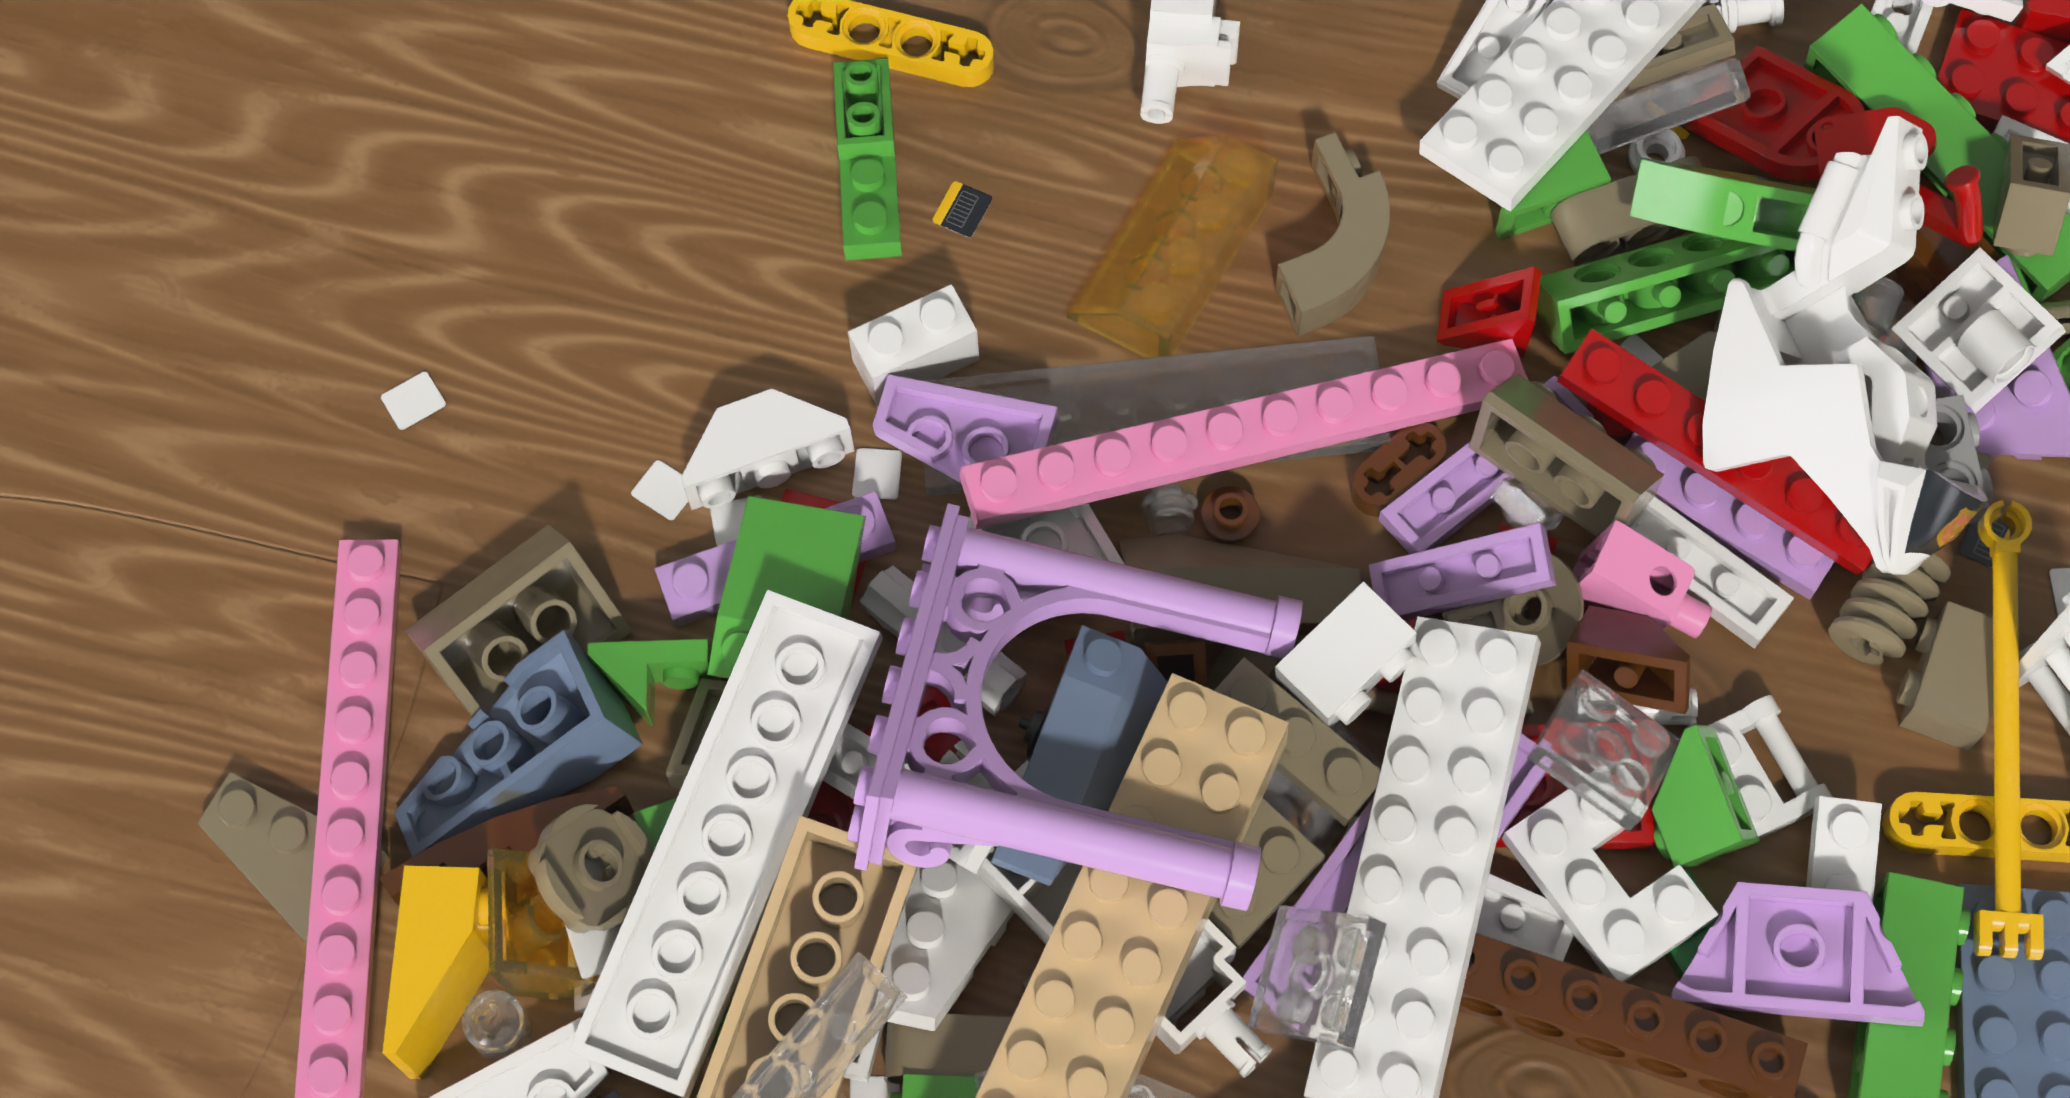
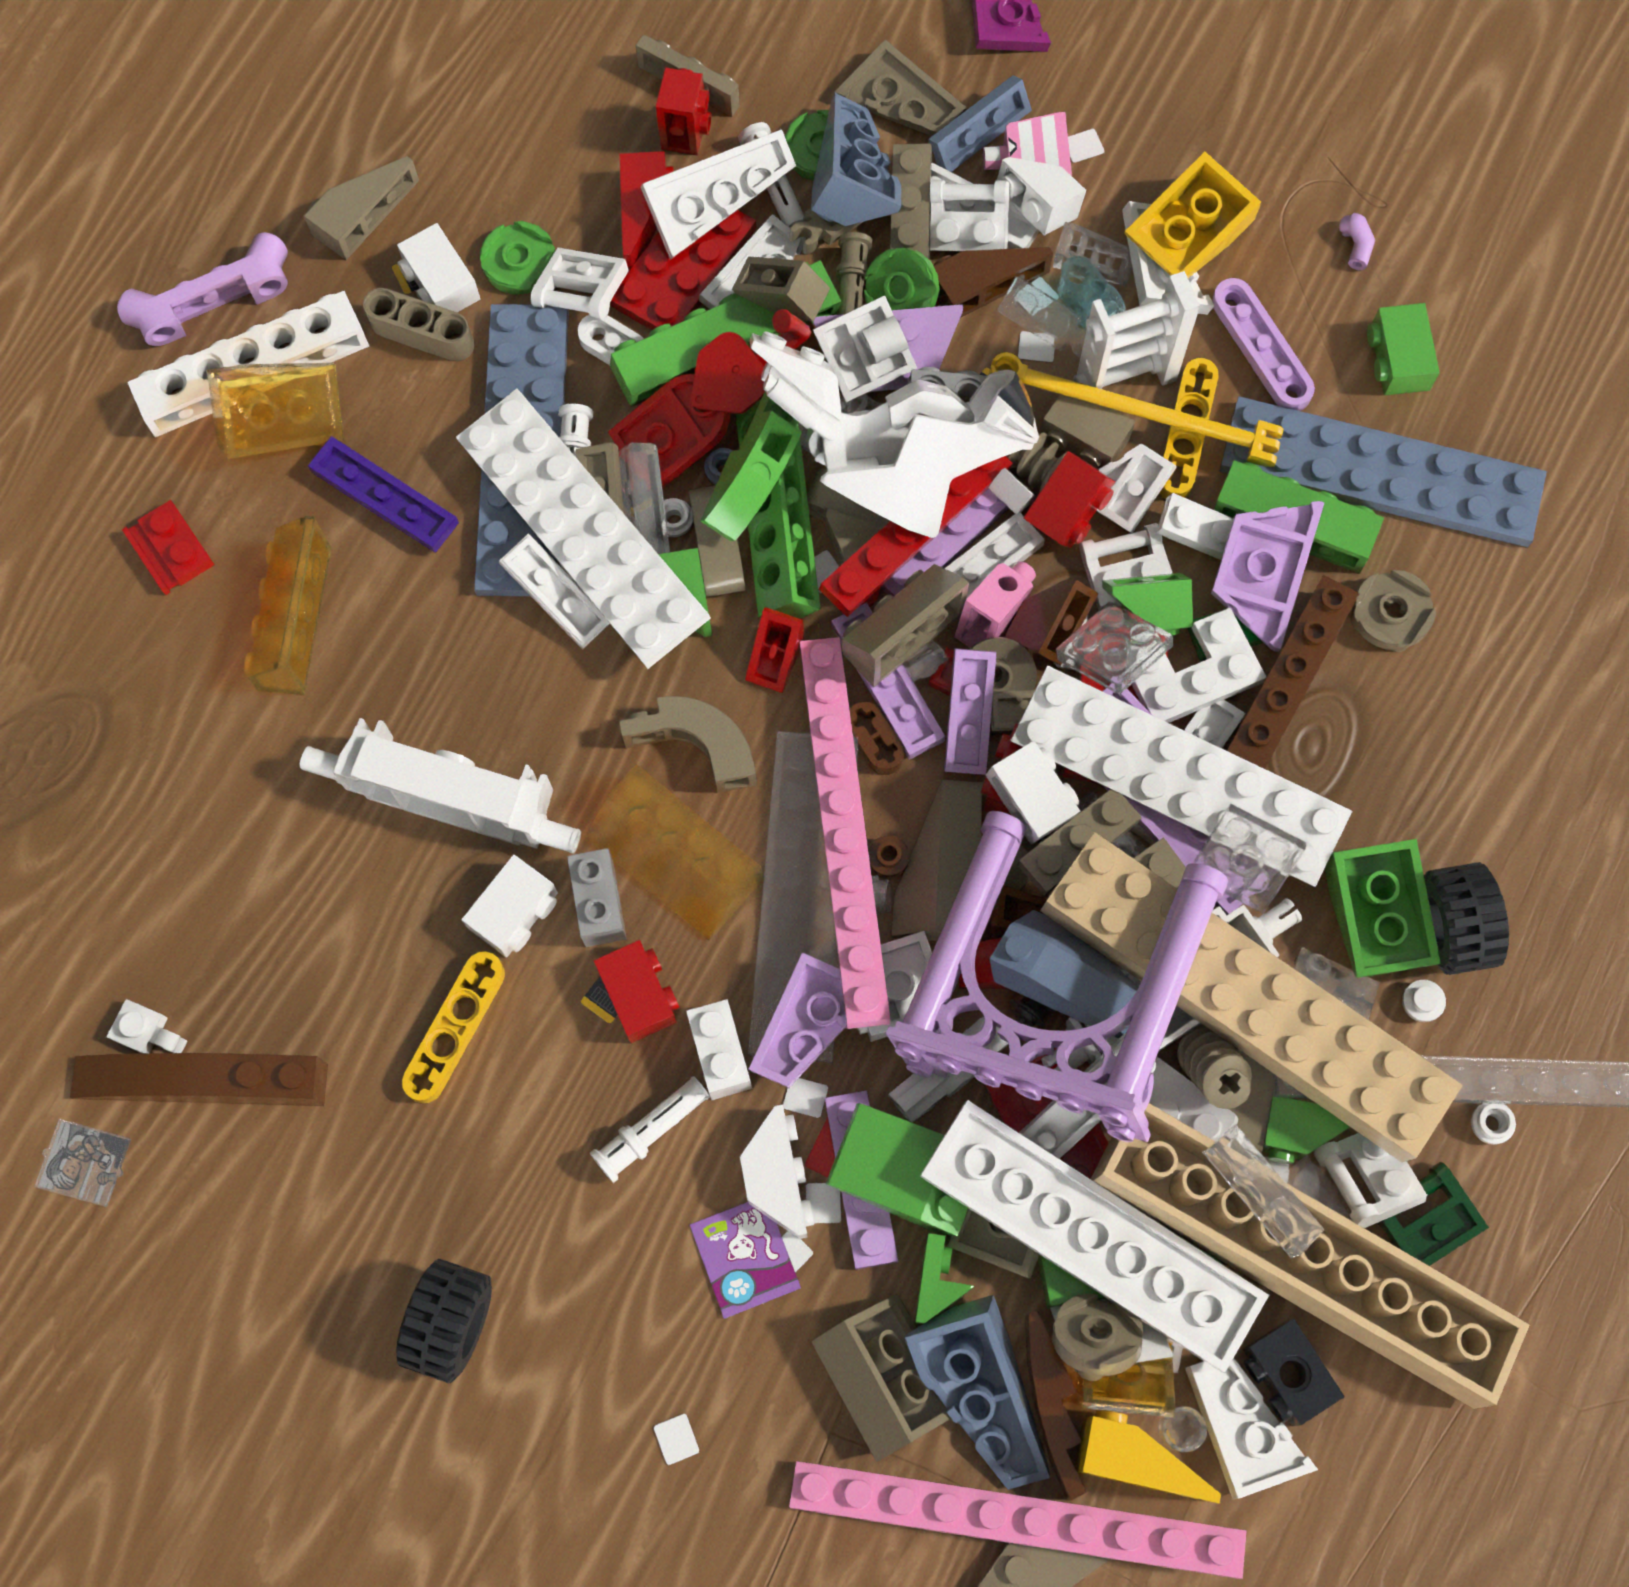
camera: 80 degrees left, 5 degrees up
(510, 86) = (443, 1320): none -> black tyre
(647, 436) = (744, 1258): none -> sticker
(779, 273) = (634, 1140): none -> white pin
(867, 160) = (558, 1059): bright green slope -> none
(975, 232) = (635, 990): none -> red brick
(986, 978) = (1215, 1067): none -> dark tan piece
(1058, 65) = (511, 907): none -> white brick
(1090, 160) = (596, 897): none -> light grey brick
(1823, 583) = (1011, 491): none -> white slope
(1827, 658) = (1070, 500): none -> red brick
(1877, 744) = (1138, 482): none -> white wing

